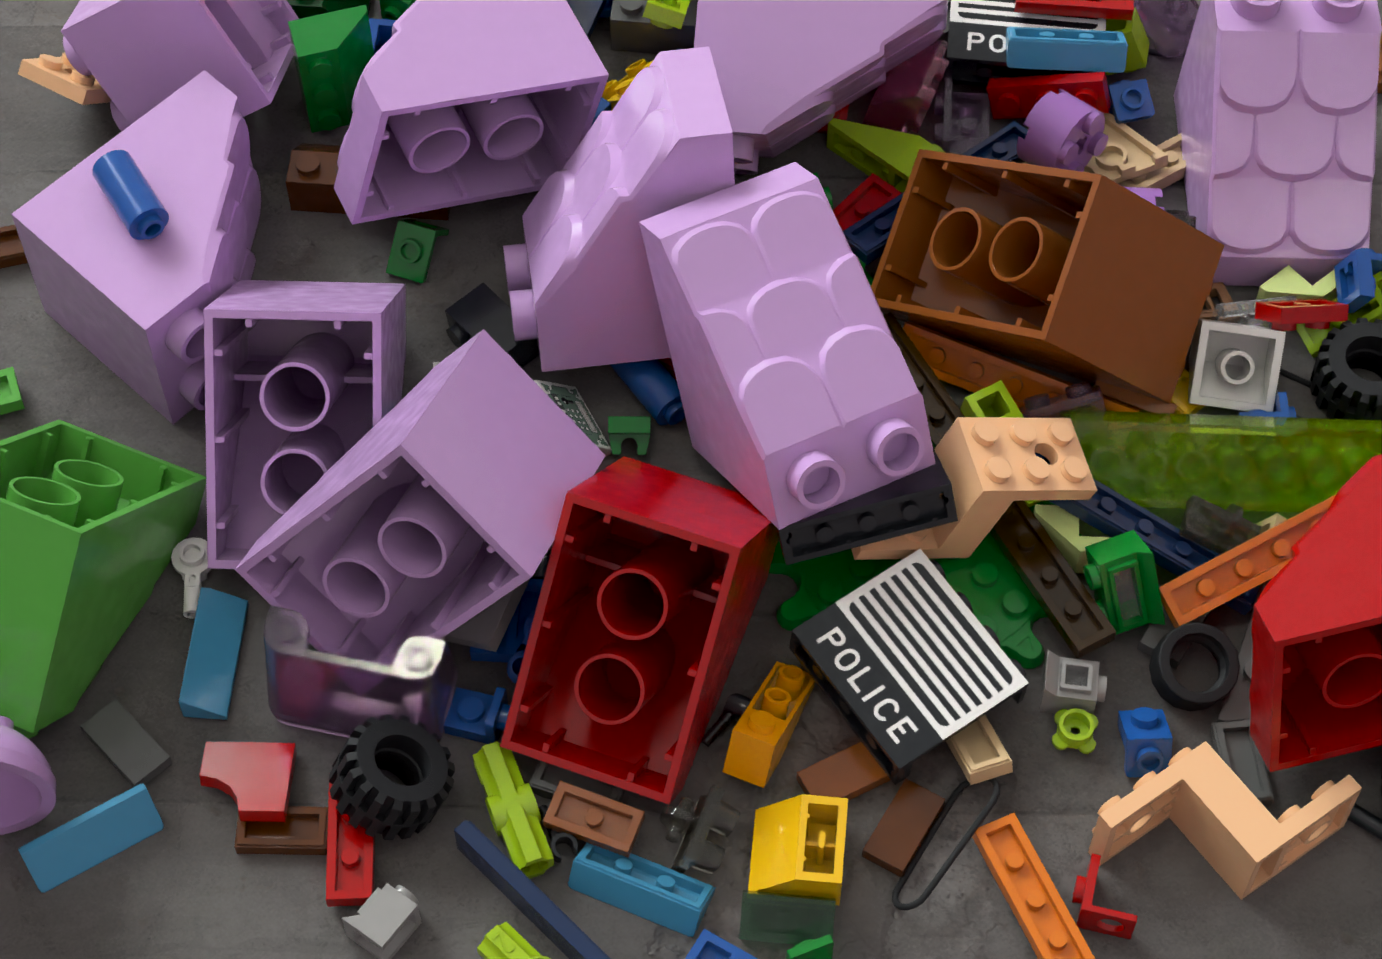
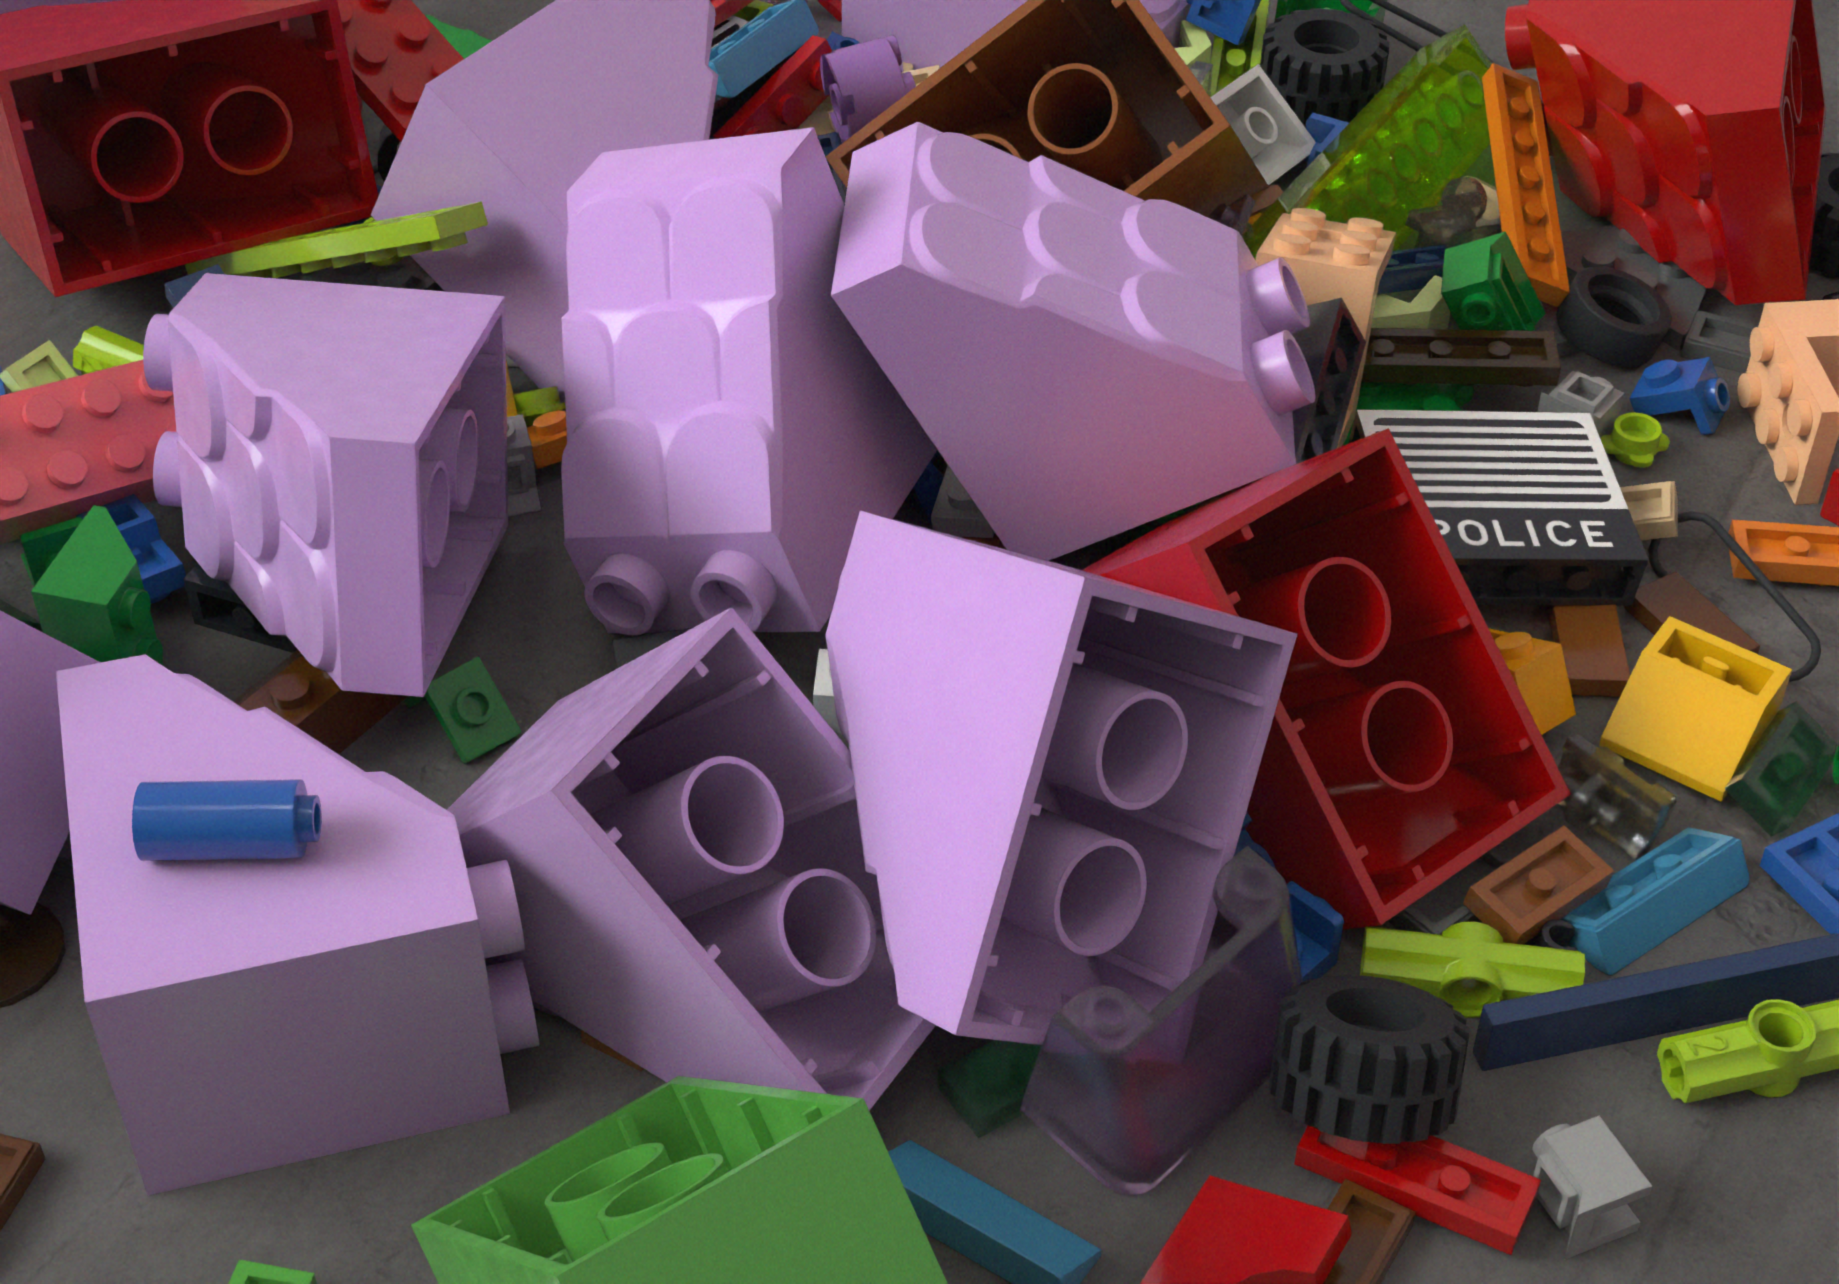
camera: 60 degrees left, 15 degrees down
(1312, 312) = (1233, 55): red plate -> none

